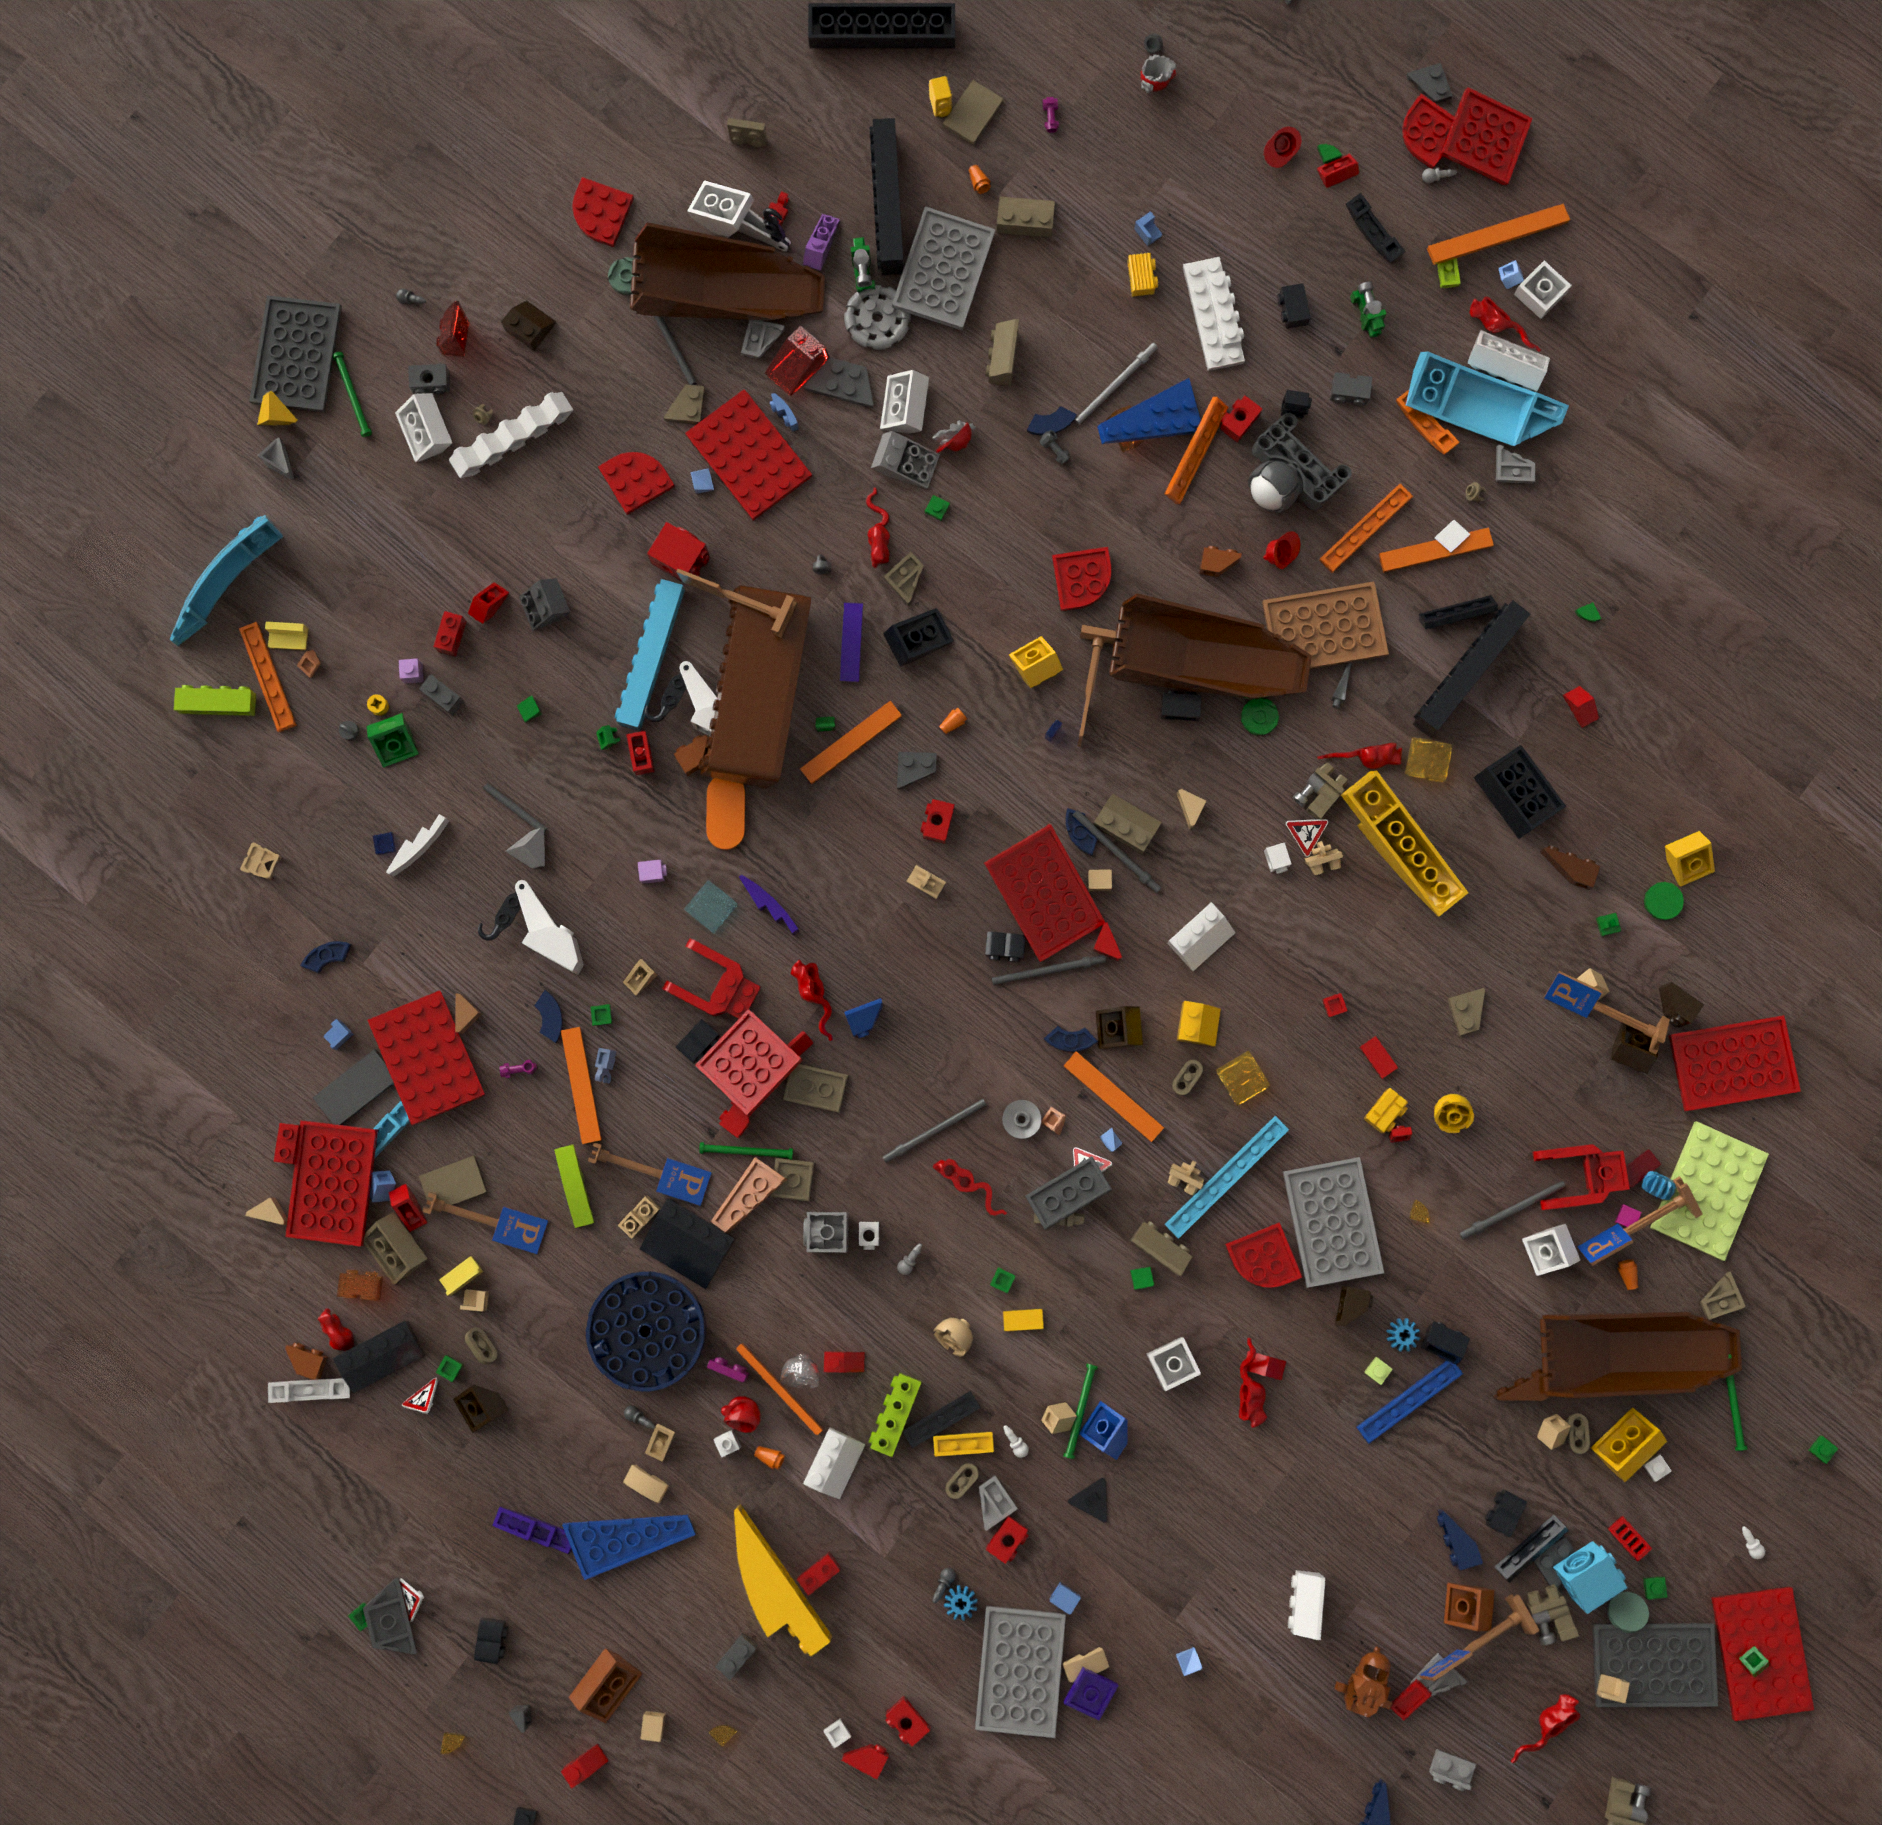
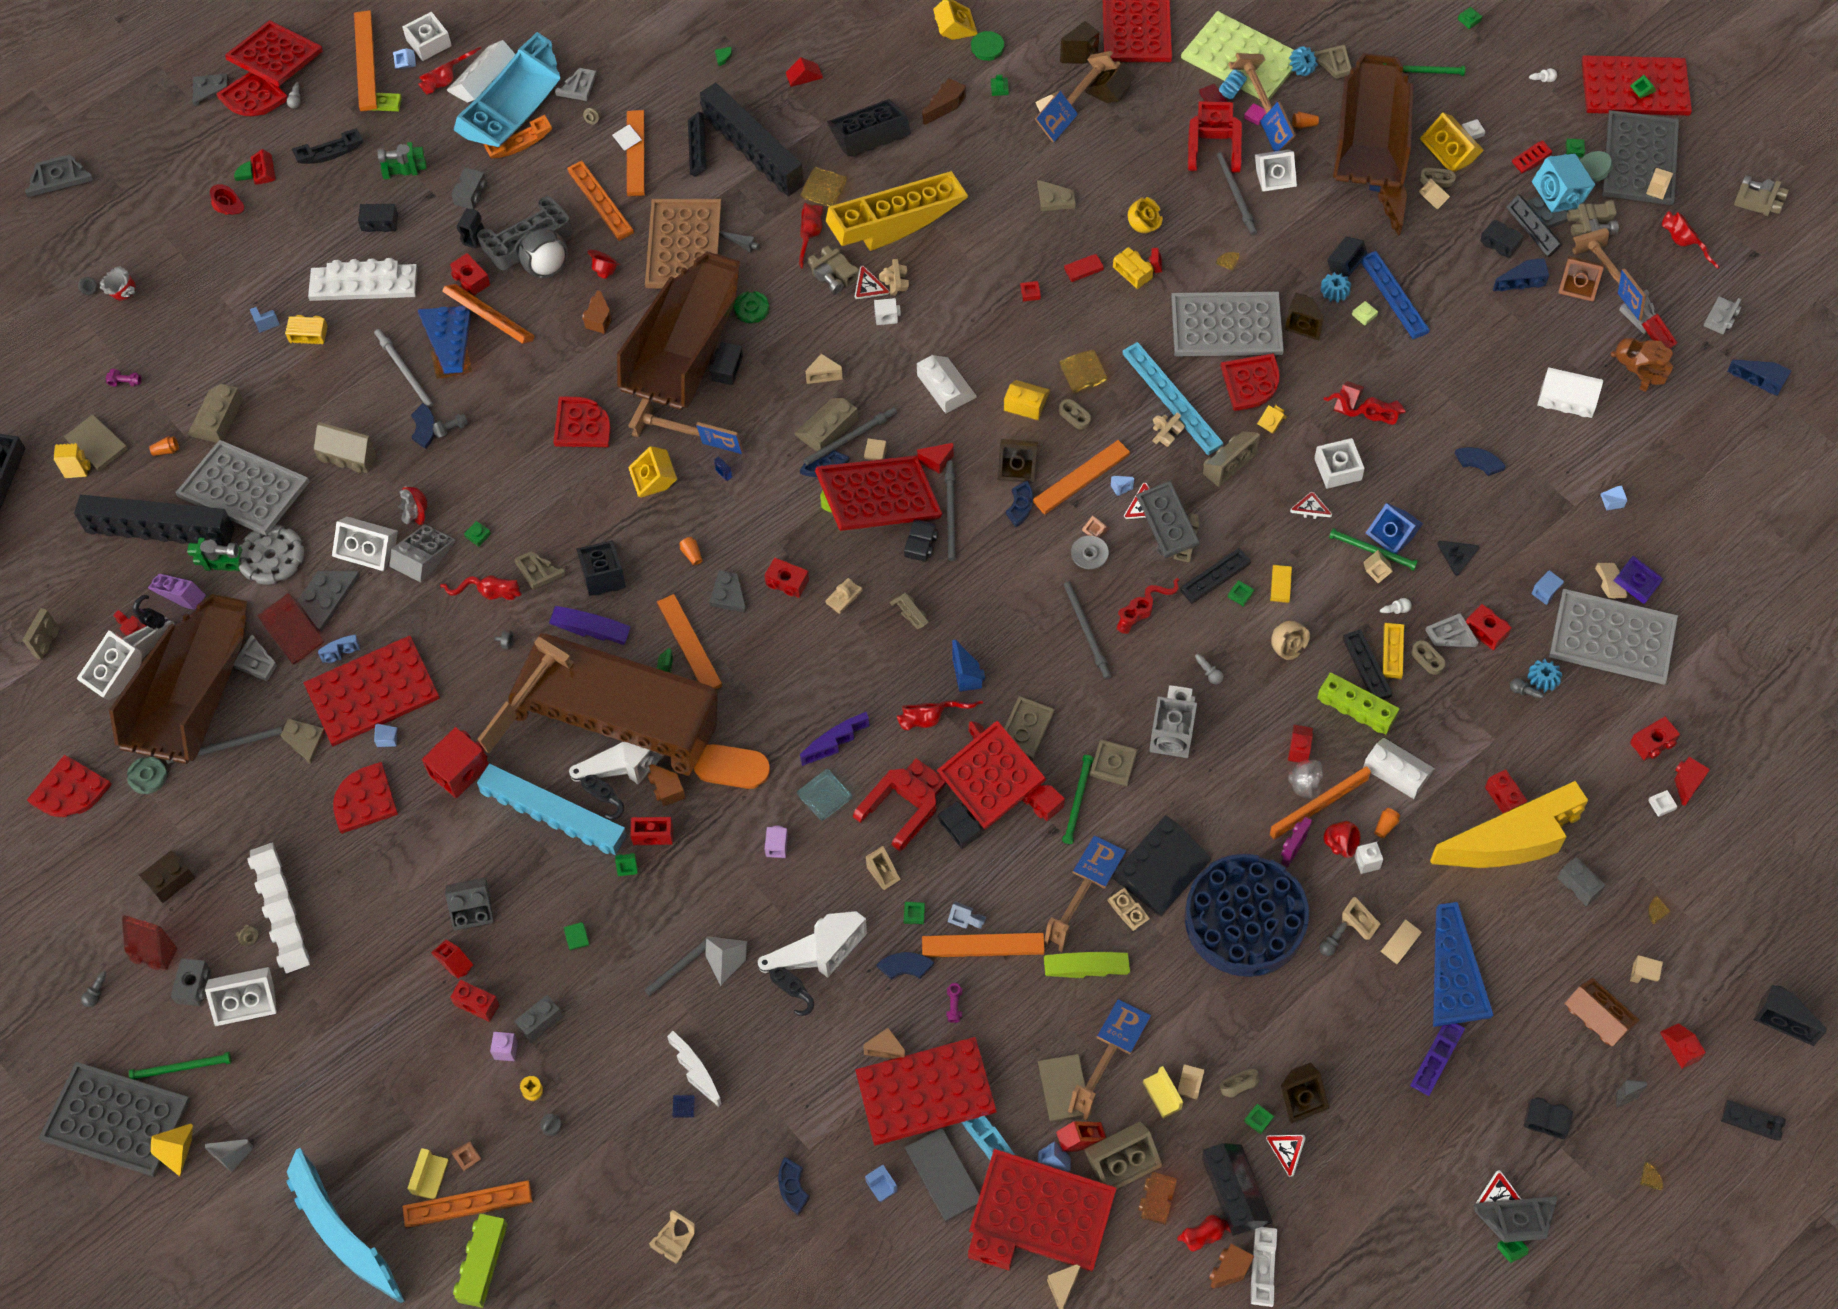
camera: 80 degrees left, 20 degrees down
(392, 740) = (573, 1077): green slope -> none
(749, 1192) = (1118, 797): nougat wing -> none
(923, 947) = (910, 611): none -> dark tan wing
(1018, 1251) = (1215, 575): none -> black plate
(1117, 1340) = (1311, 506): none -> piece
(1142, 1278) = (1255, 478): green slope -> none
(1213, 1513) = (1480, 459): none -> dark blue tile
(1221, 1286) = (1272, 418): none -> yellow bracket
(1710, 1261) = (1303, 61): none -> dark azure gear

